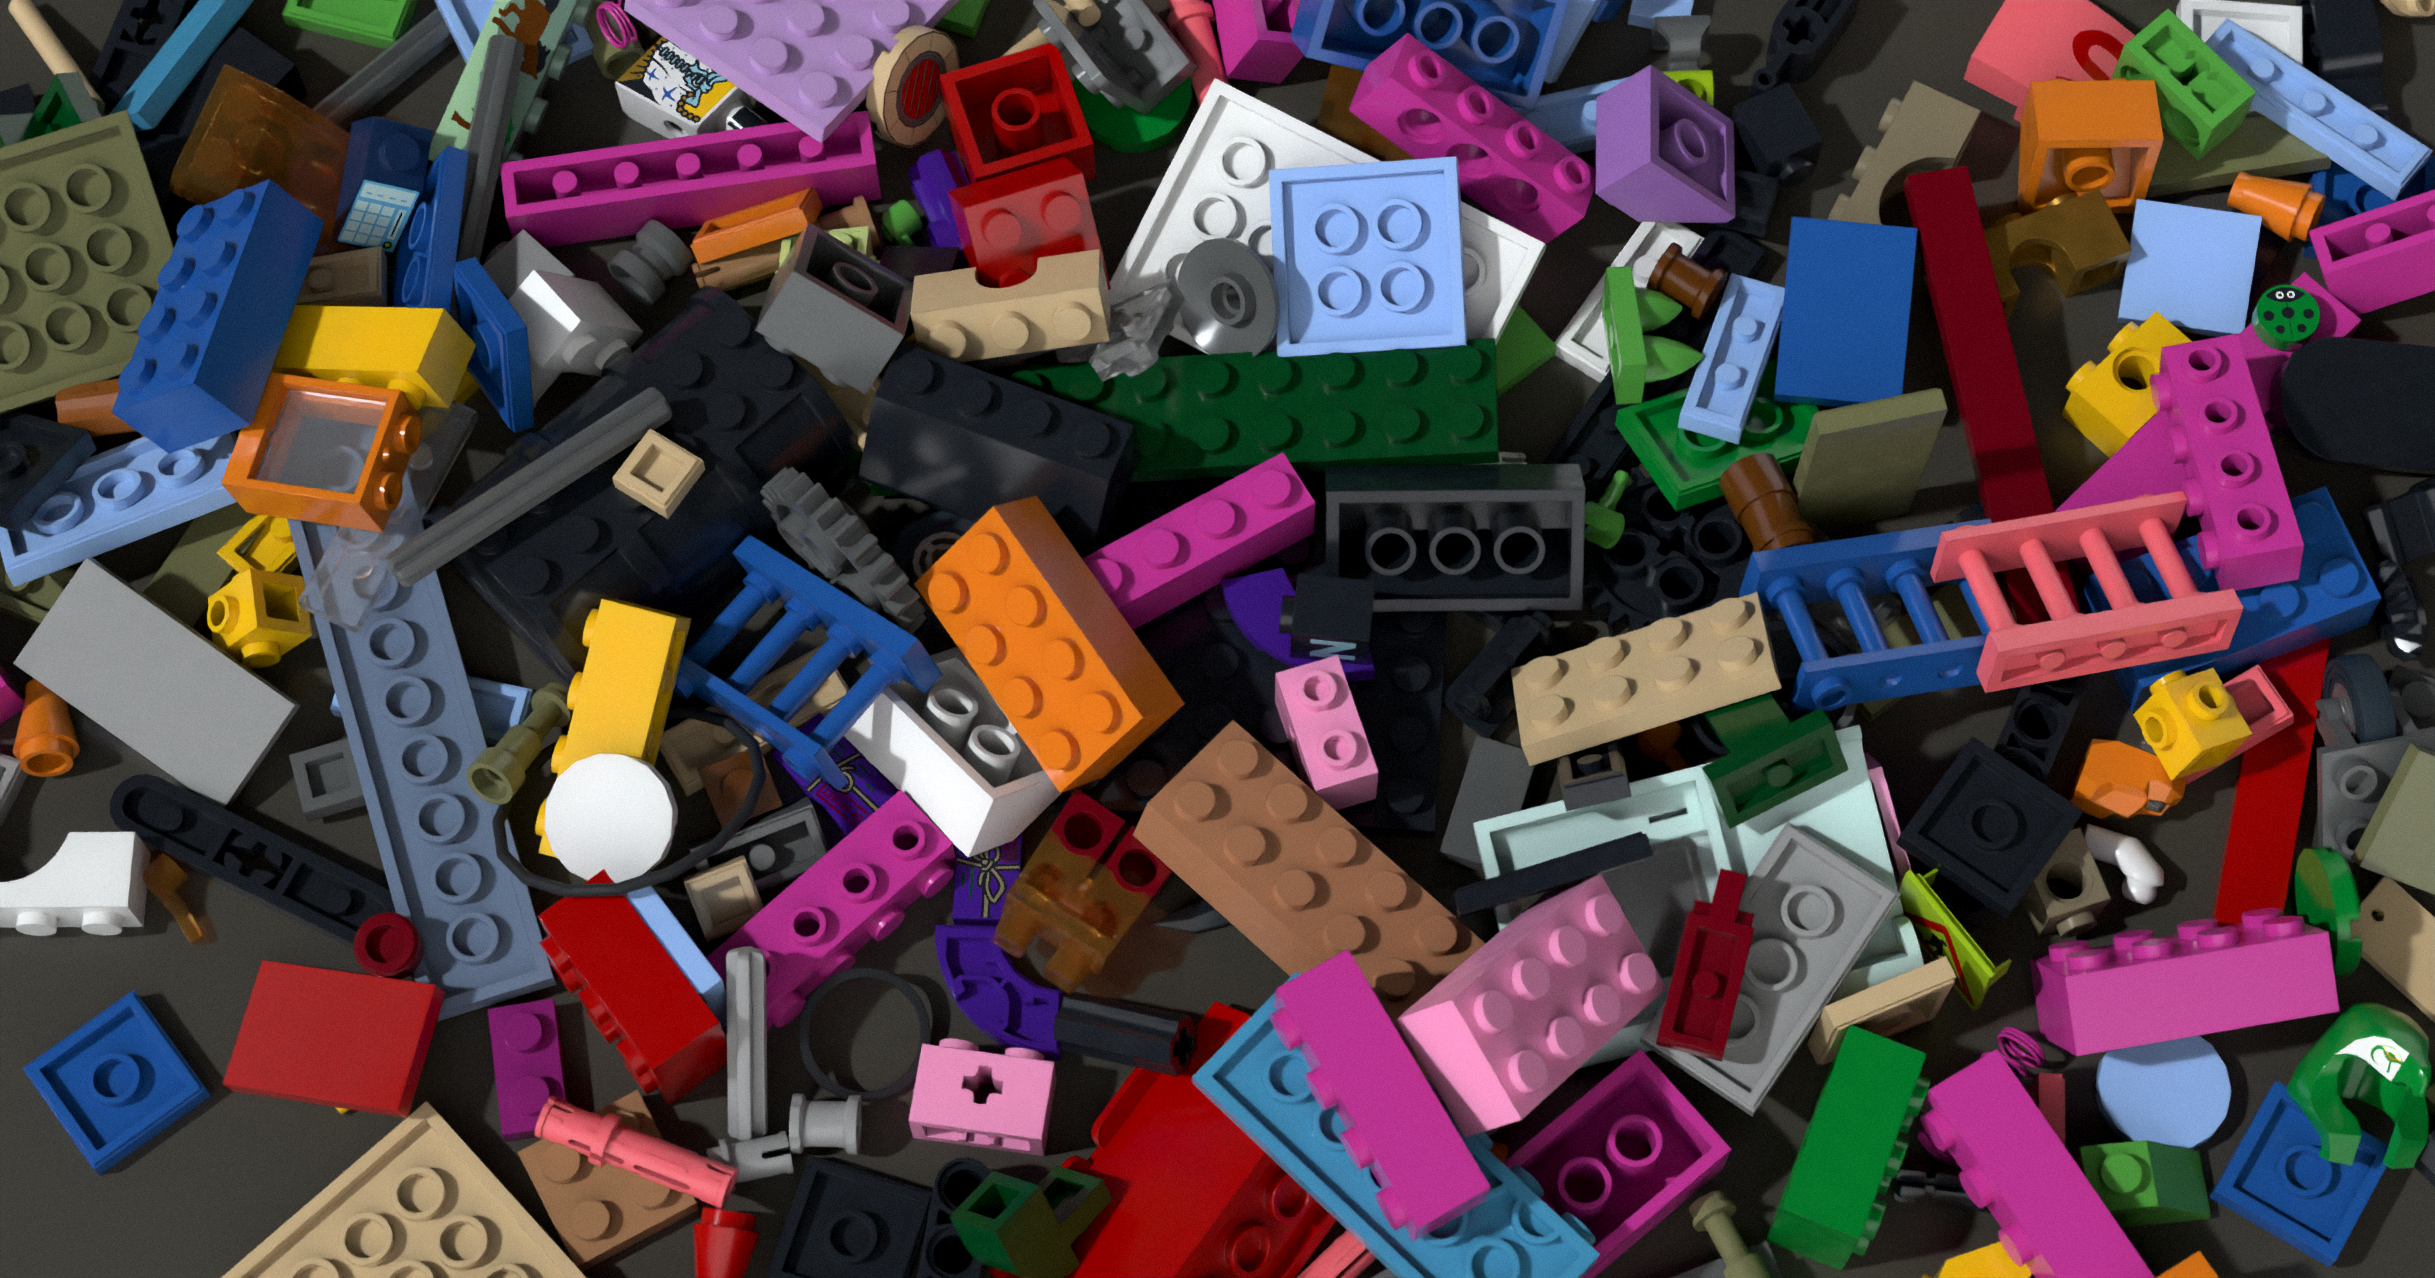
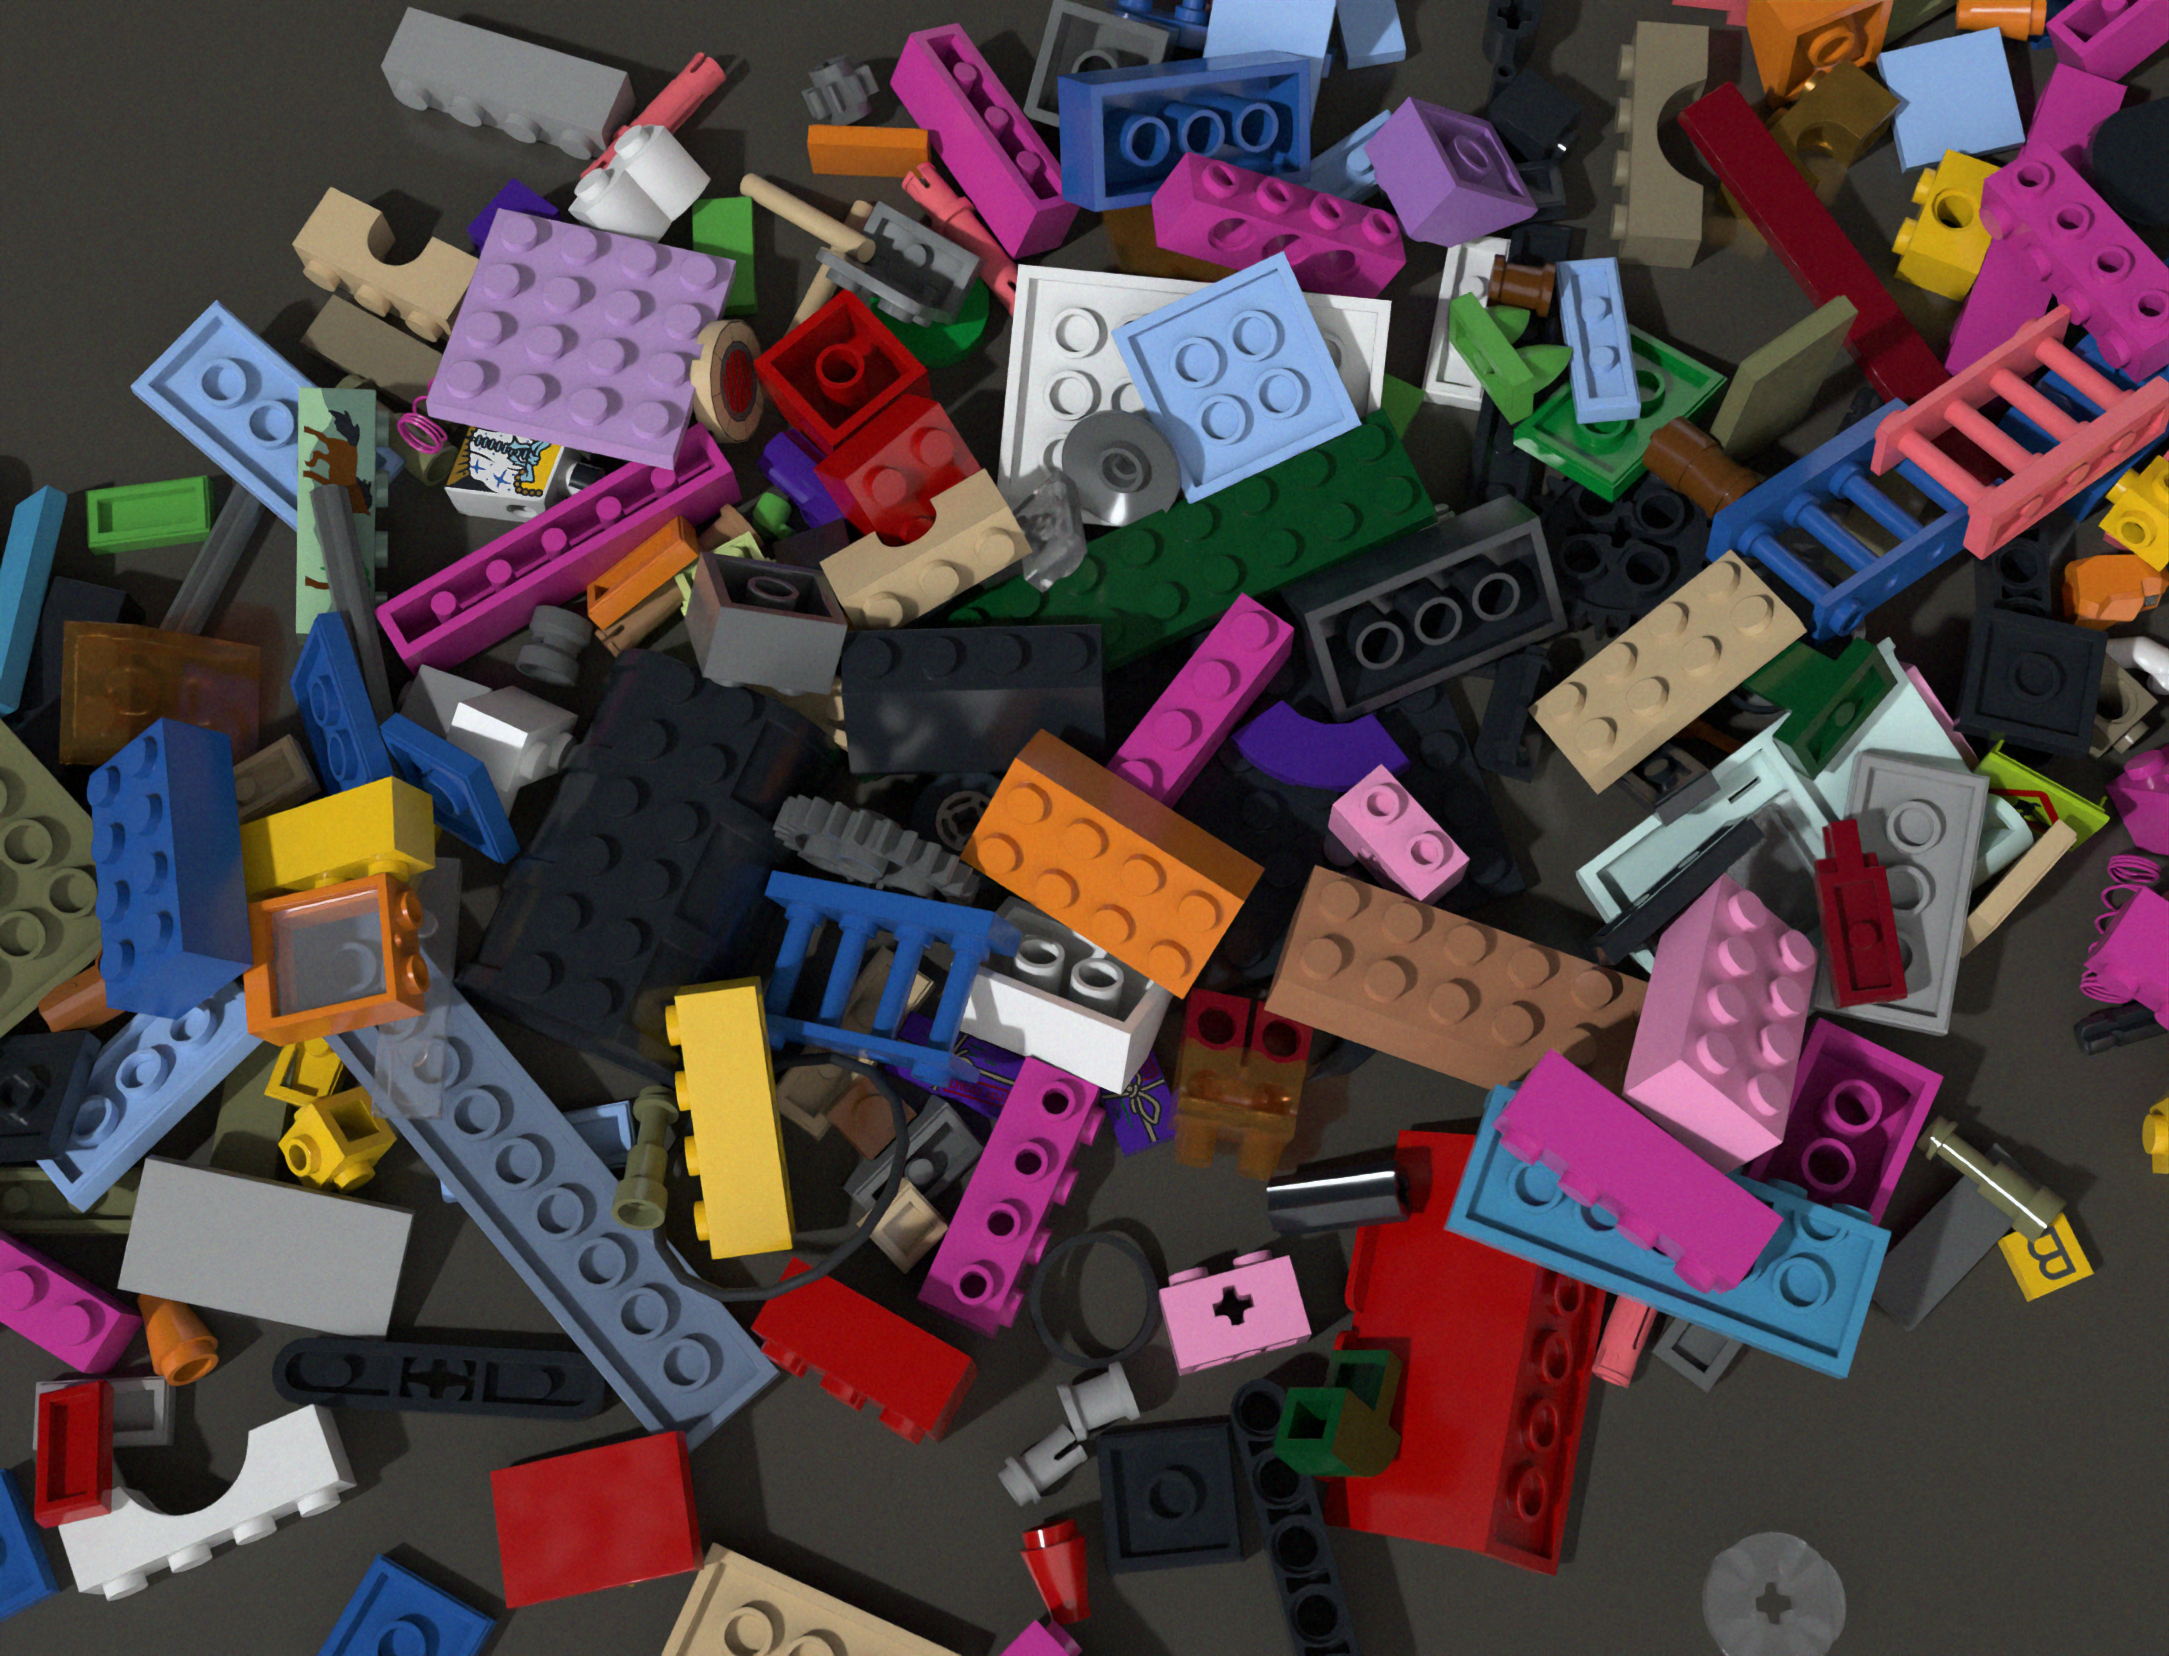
camera: 20 degrees left, 5 degrees up
(163, 879) = (357, 1434): clear orange hand -> none
(327, 780) = (473, 1270): dark grey plate -> none
(380, 182) = (263, 673): dark blue slope -> none
(388, 946) = (609, 1410): dark red tile -> none
(526, 1063) = (793, 1467): magenta plate -> none
(528, 487) = (553, 917): dark grey axle -> none
(607, 1206) = (916, 1542): medium nougat plate -> none
(611, 817) = (771, 1200): white tile -> none
(624, 1147) = (927, 1509): coral pin -> none
(658, 473) = (672, 852): tan tile -> none
(681, 949) = (898, 1299): light blue tile -> none
(746, 1043) = (995, 1359): light grey axle -> none
(993, 992) = (1195, 1209): dark purple tile -> none
(1329, 618) = (1354, 731): black brick -> none
(1491, 787) = (1557, 840): dark grey tile -> none
(1603, 522) = (1557, 537): bright green hand -> none
(1684, 40) = (1415, 63): dark grey leg -> none
(1844, 312) = (1680, 260): blue tile -> none
(1850, 1149) = (2039, 1029): green brick -> none
(2285, 317) = (2065, 110): green tile -> none

